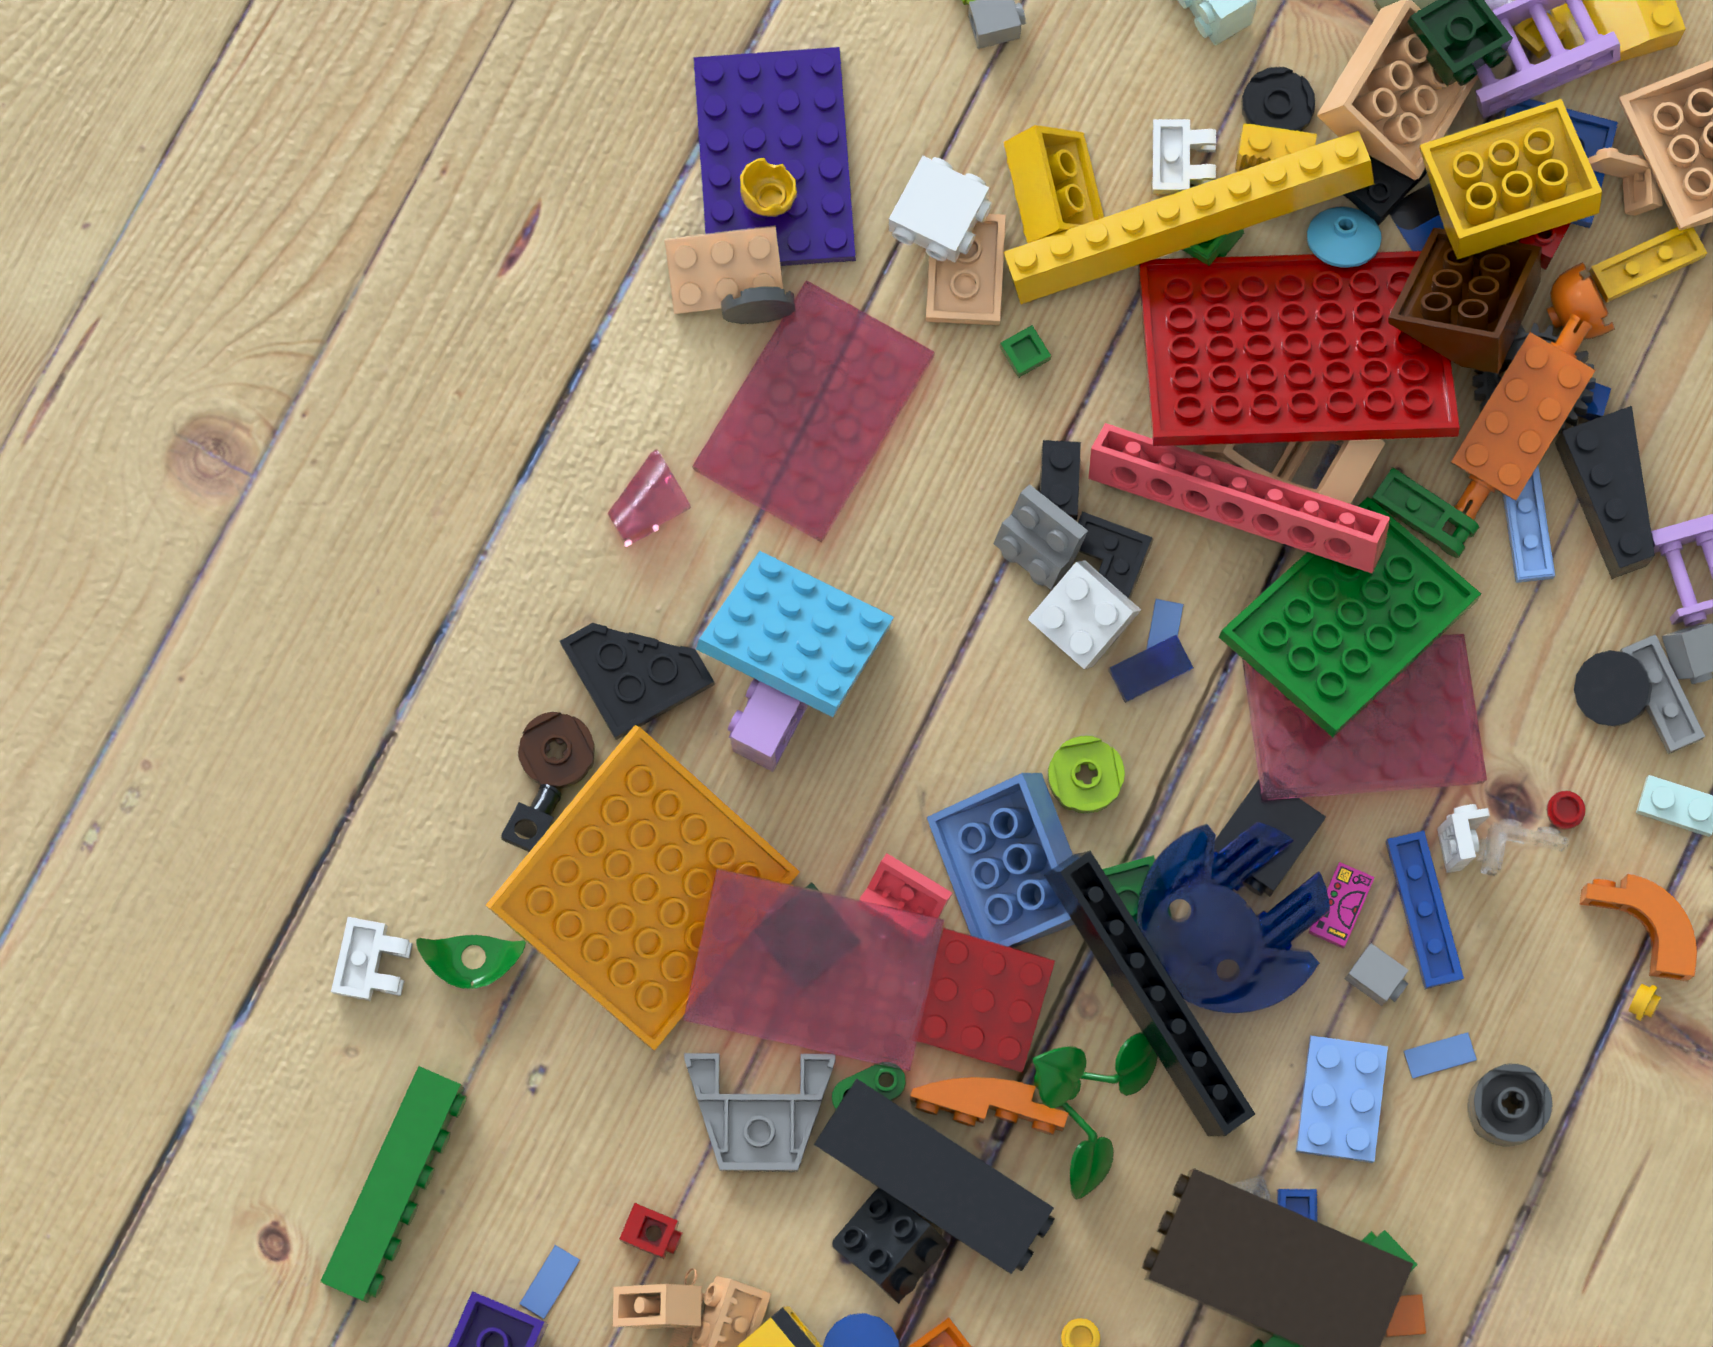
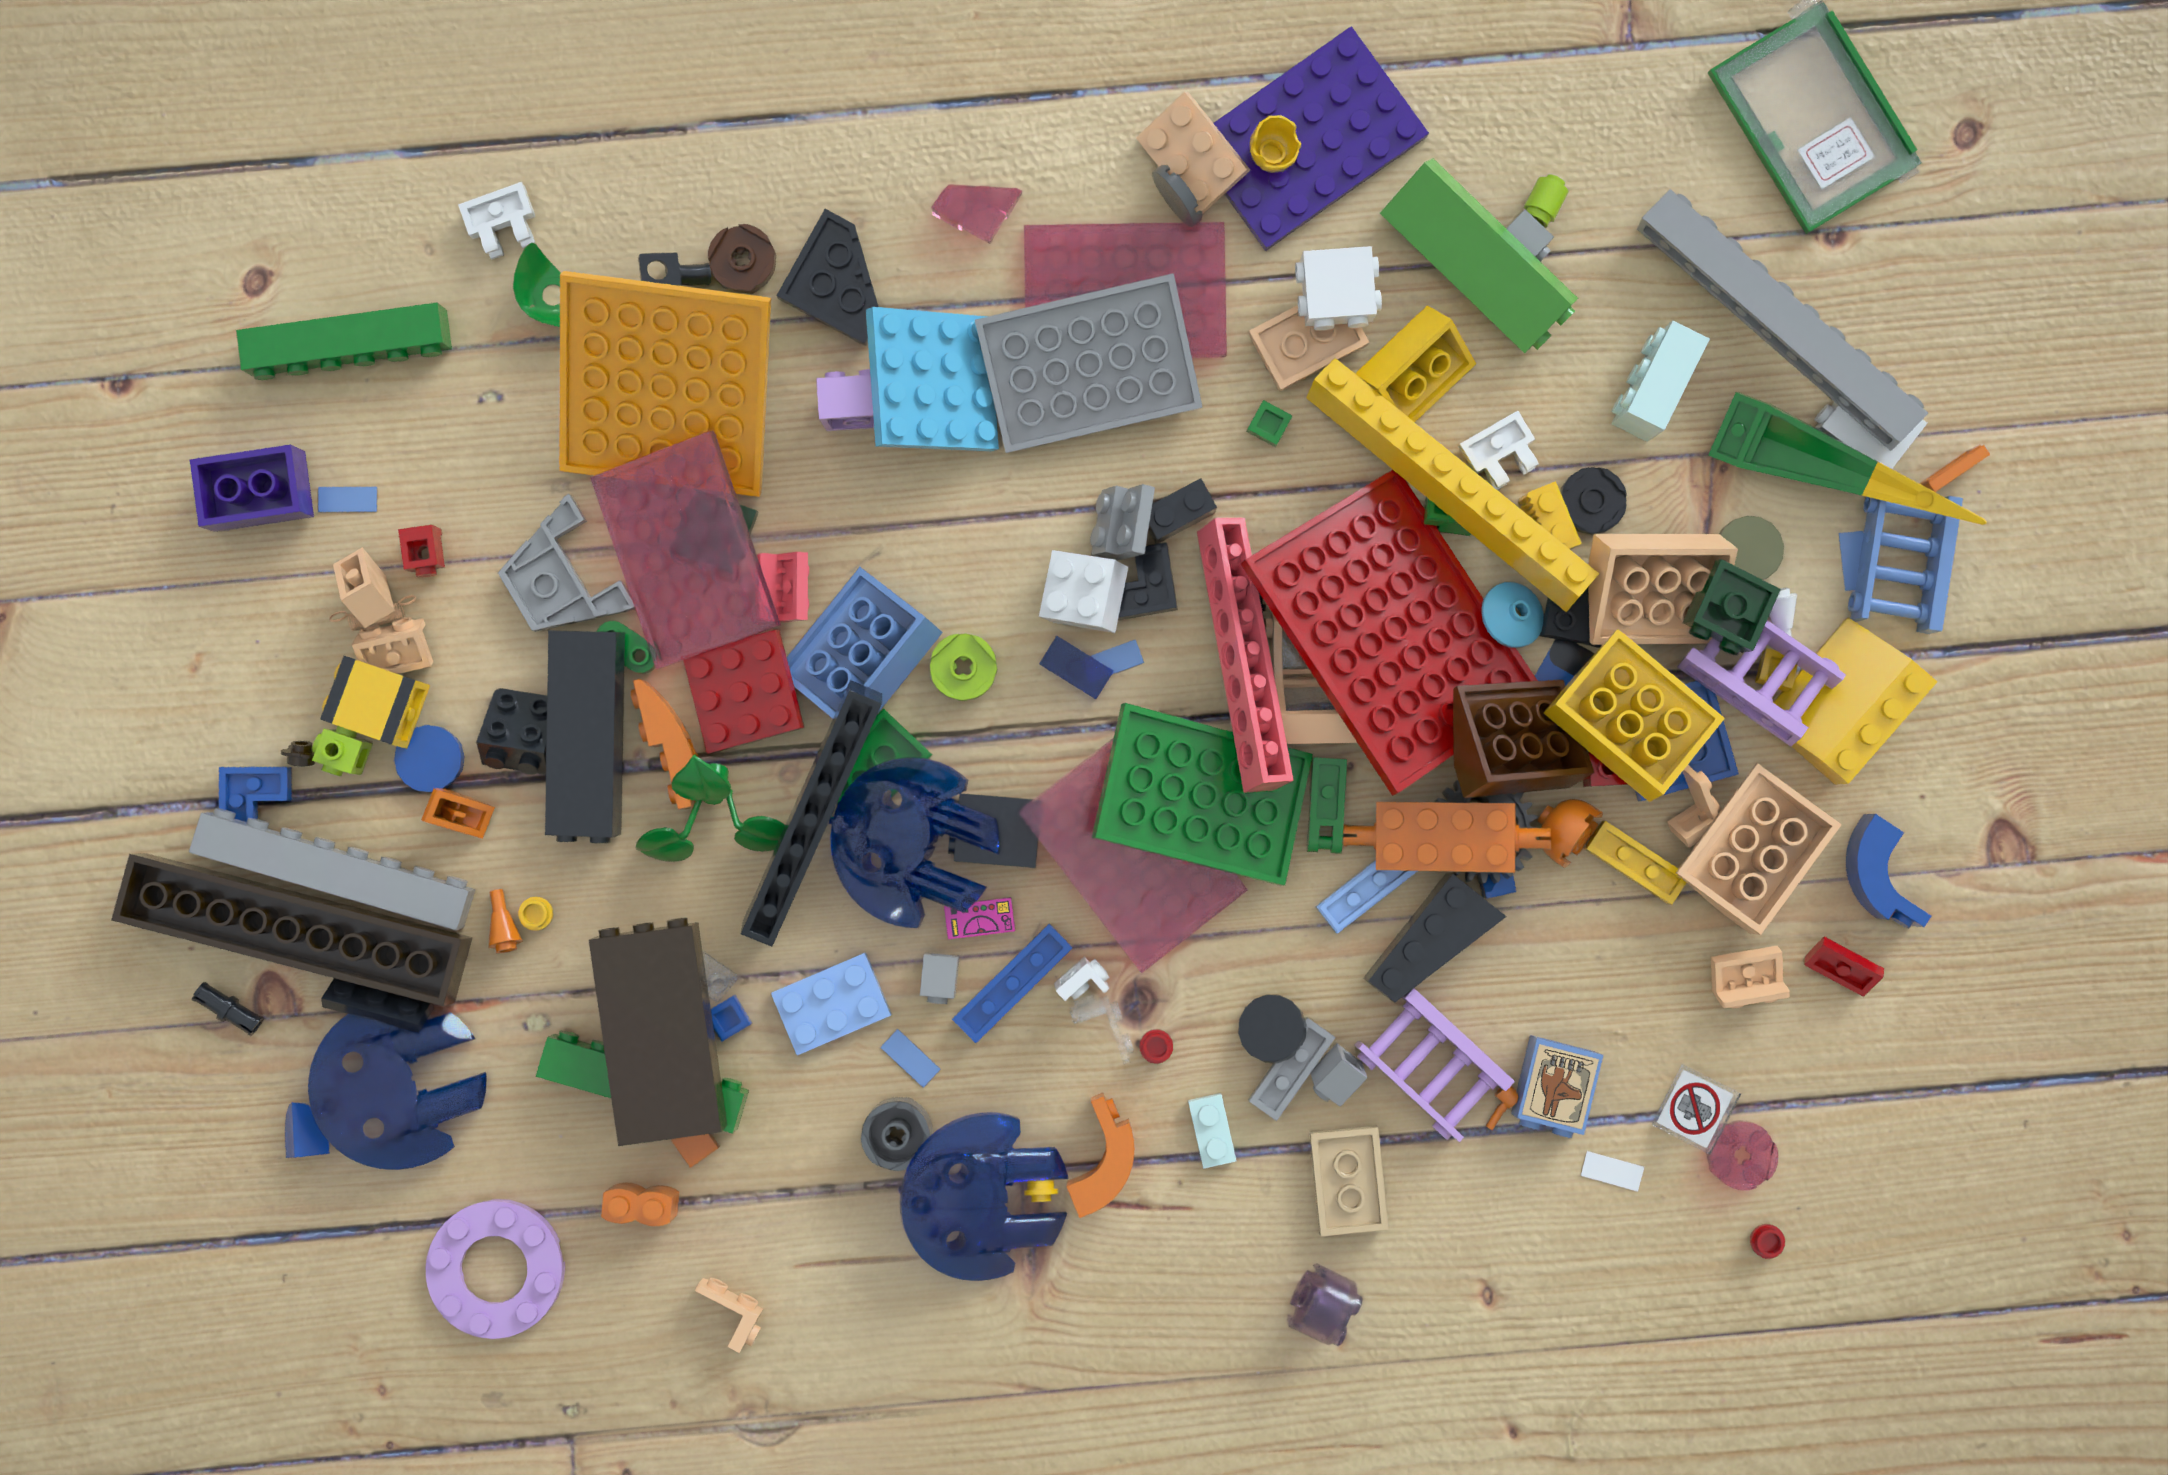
camera: 55 degrees right, 10 degrees up
(867, 481) = (1089, 363): none -> light grey plate
(988, 67) = (1479, 256): none -> bright green brick
(1618, 1064) = (975, 1197): none -> clear blue piece

